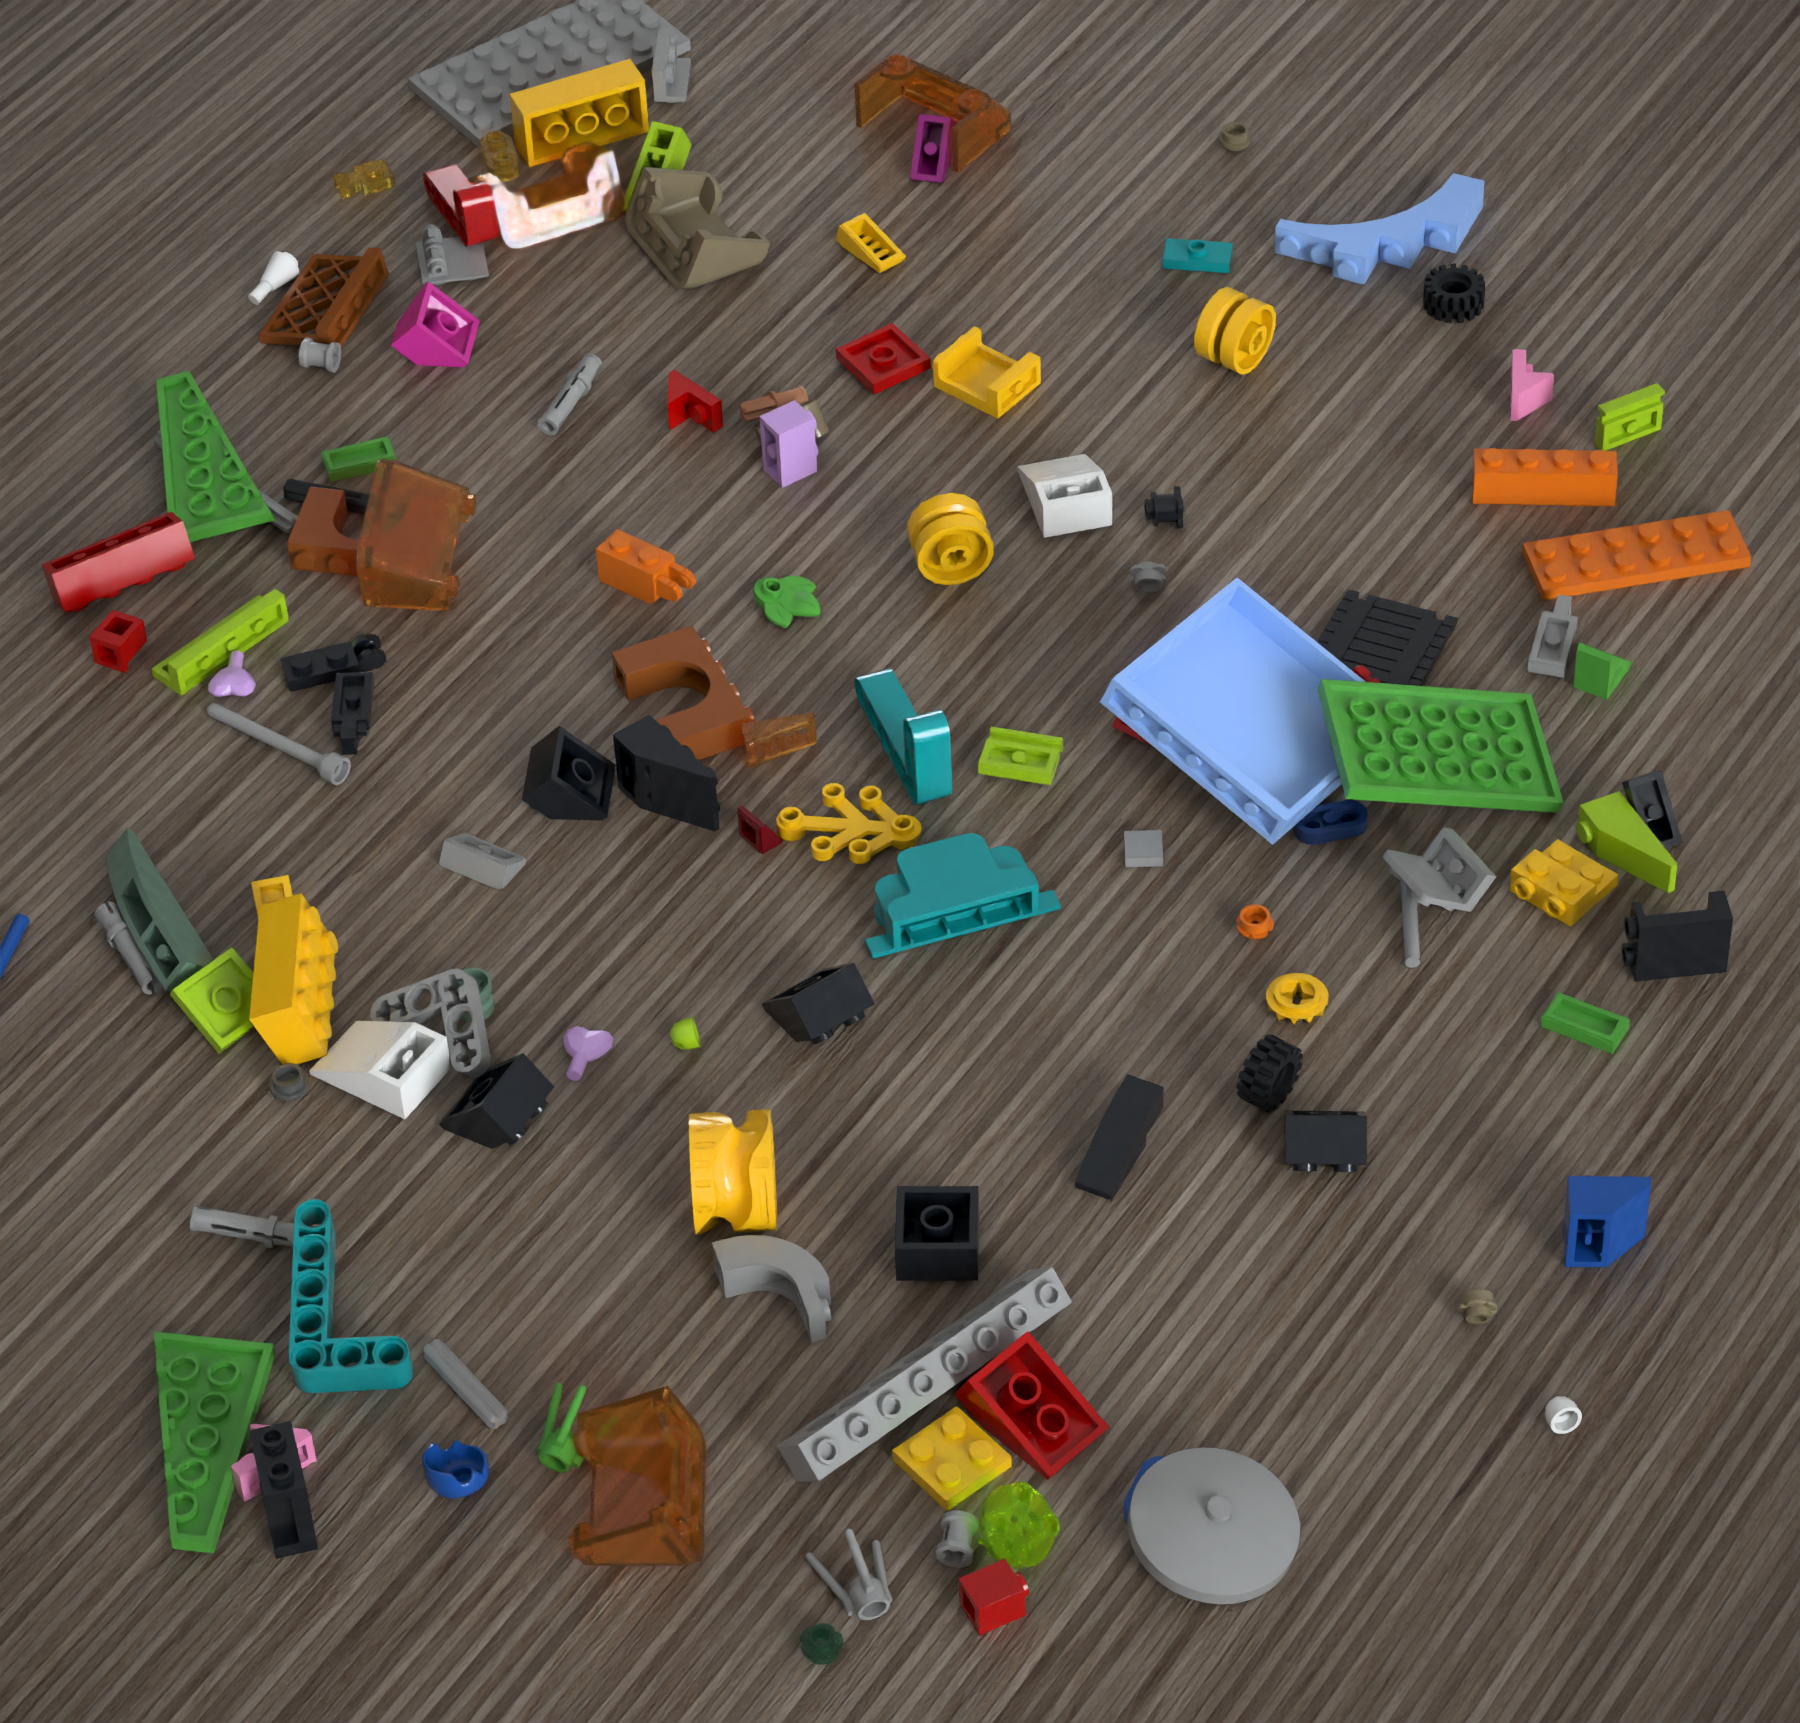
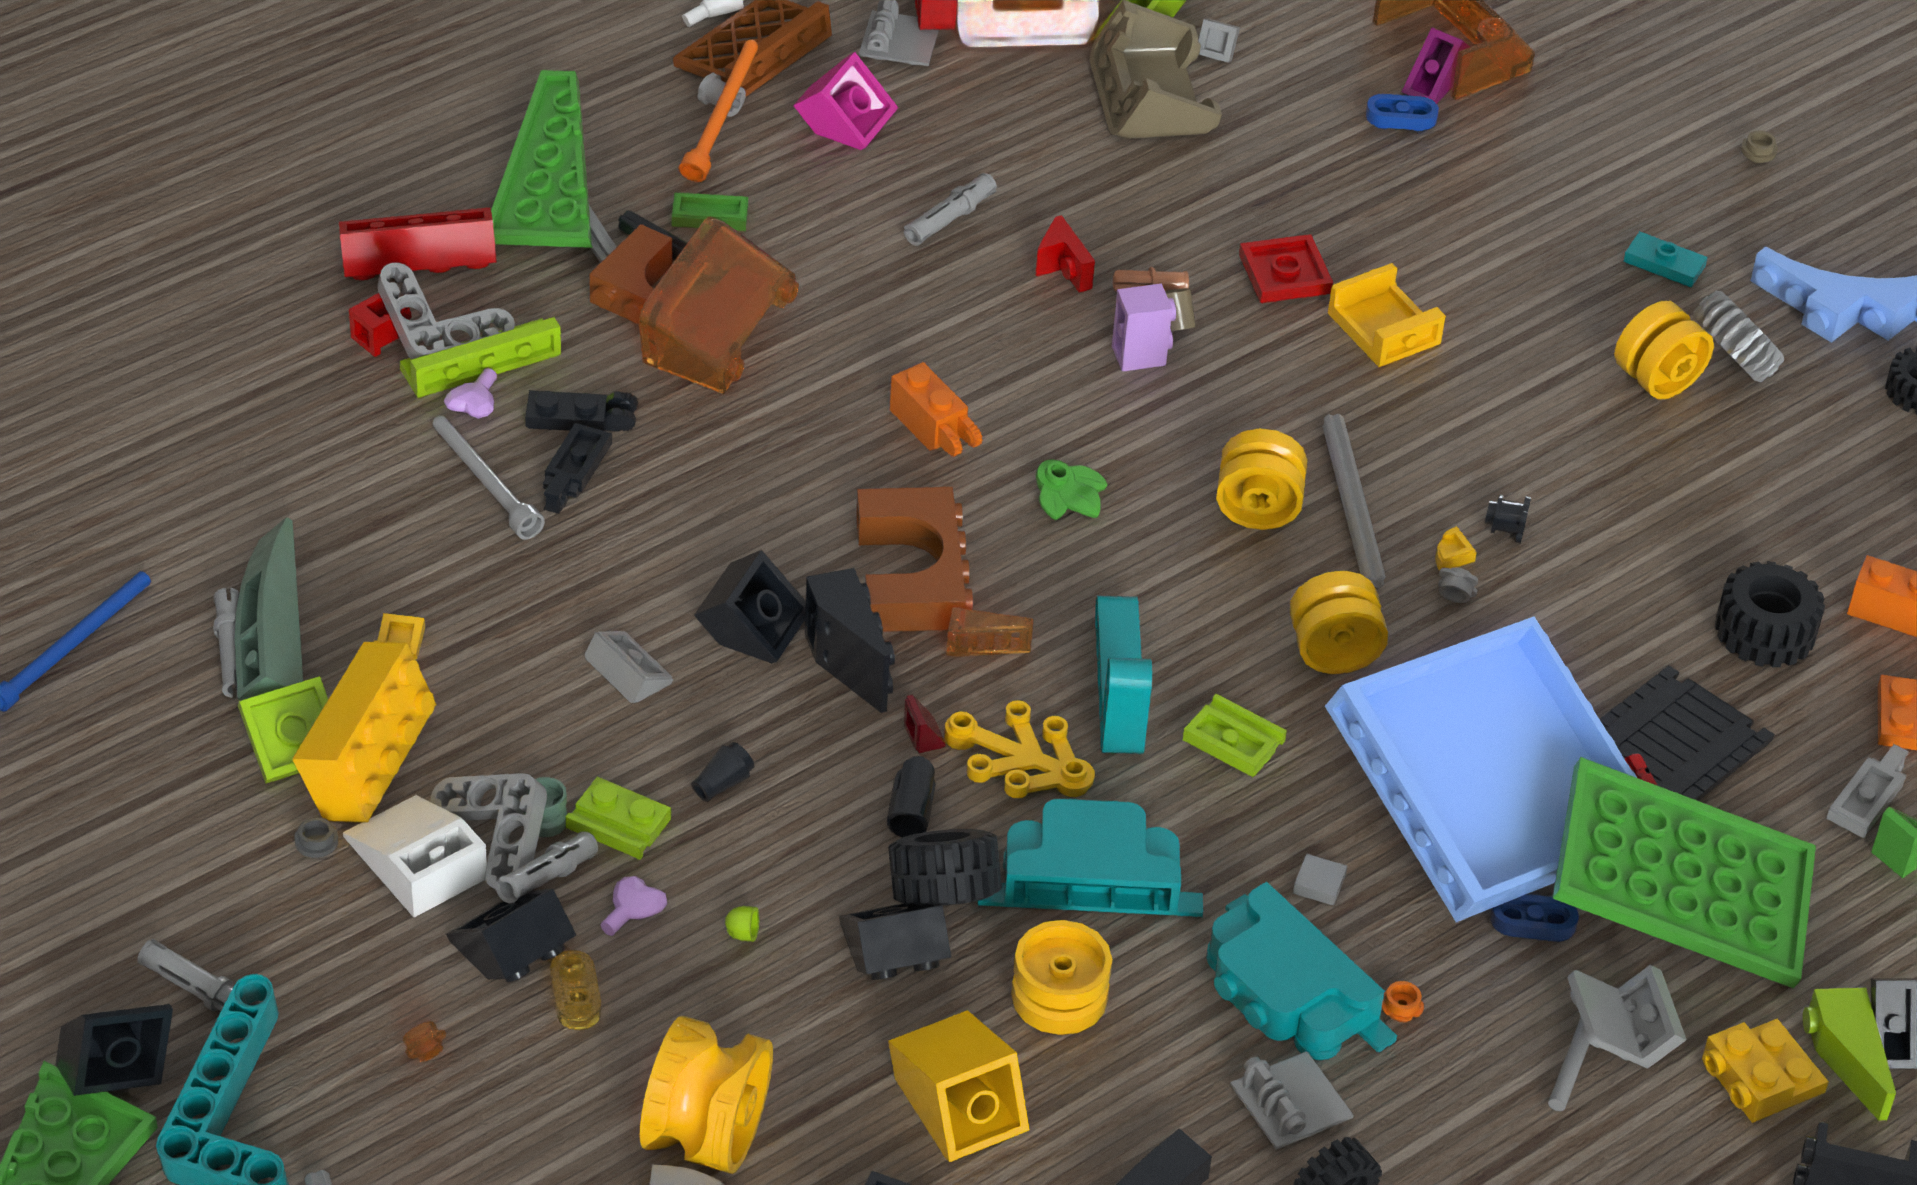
camera: 15 degrees right, 0 degrees up
(166, 631) = (426, 327): none -> light grey beam
(214, 1299) = (114, 1049): none -> black slope
(328, 420) = (697, 162): none -> orange piece
(467, 1212) = (424, 1041): none -> clear orange plate
(507, 1034) = (559, 860): none -> light grey pin
(537, 984) = (619, 817): none -> lime plate
(567, 1124) = (573, 981): none -> clear yellow plate
(609, 918) = (725, 769): none -> black cone
(734, 179) = (1218, 40): none -> light grey tile
(779, 890) = (912, 797): none -> black arm
(839, 933) = (945, 867): none -> black tyre
(849, 238) = (1328, 126): yellow slope -> none
(920, 195) = (1402, 112): none -> blue plate
(930, 1099) = (961, 1084): none -> yellow slope
(973, 990) = (1061, 977): none -> yellow wheel
(1029, 535) = (1353, 499): none -> light grey axle
(1067, 494) = (1410, 470): white slope -> none
(1068, 636) = (1338, 622): none -> yellow wheel
(1131, 550) = (1454, 550): none -> yellow tile
(1159, 930) = (1293, 977): none -> teal brick
(1199, 1026) = (1290, 1098): none -> light grey hinge
(1284, 989) = (1401, 1089): yellow gear -> none
(1292, 300) = (1738, 336): none -> light grey gear
(1414, 521) = (1769, 614): none -> black tyre

